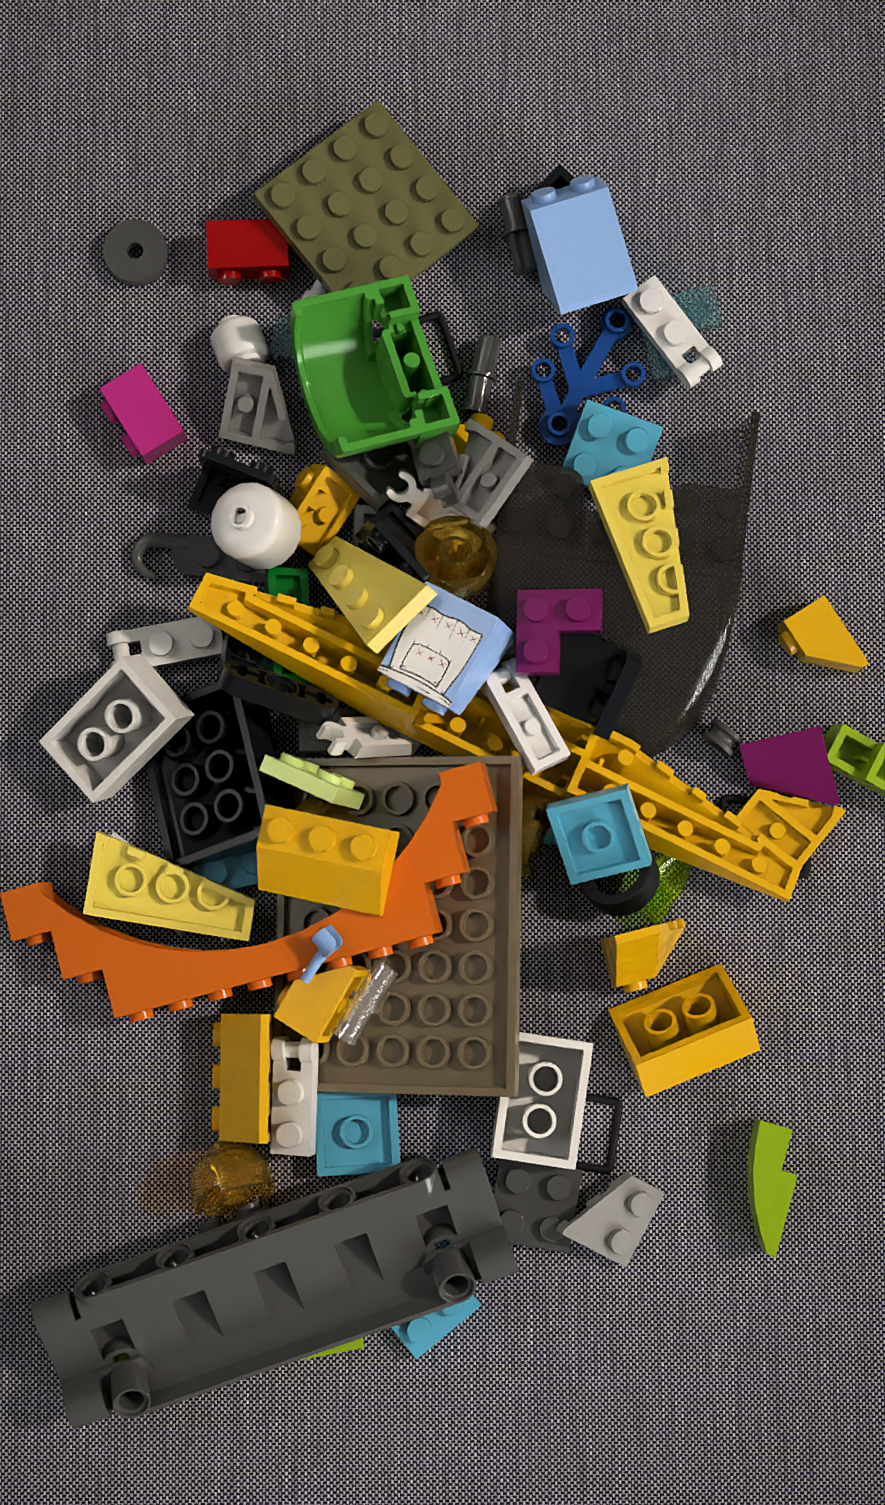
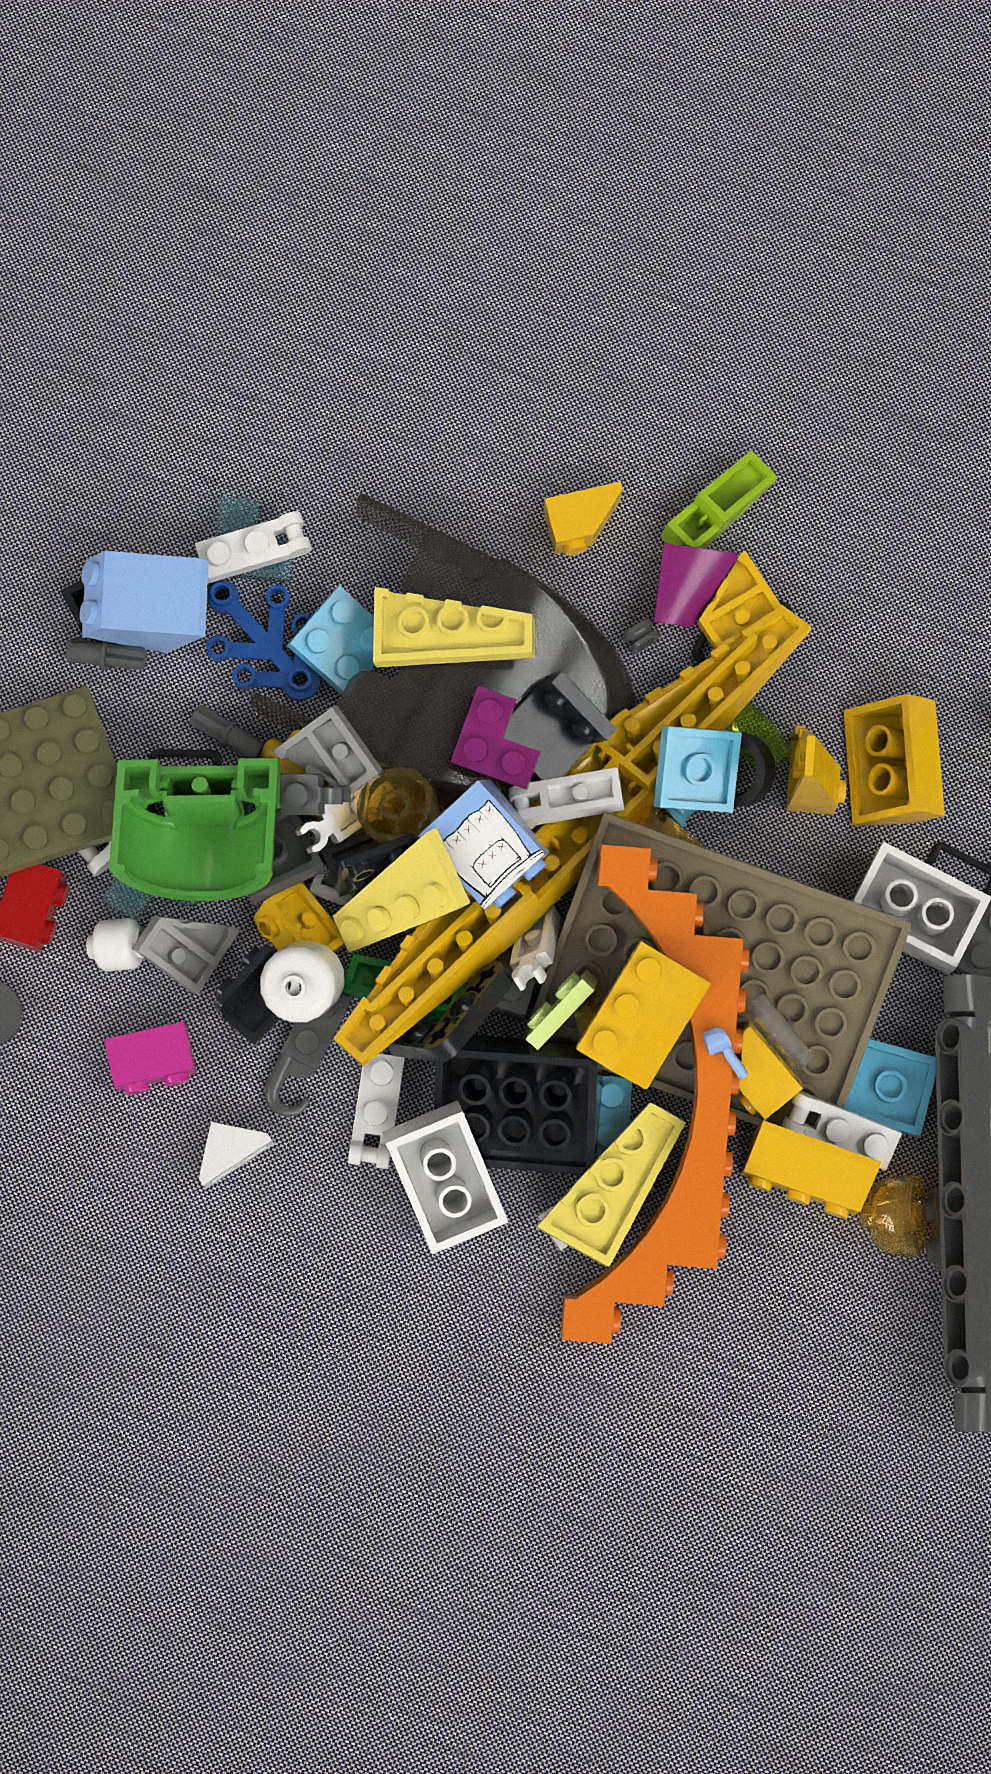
camera: 65 degrees left, 5 degrees down
(80, 517) = (229, 1149): none -> white slope

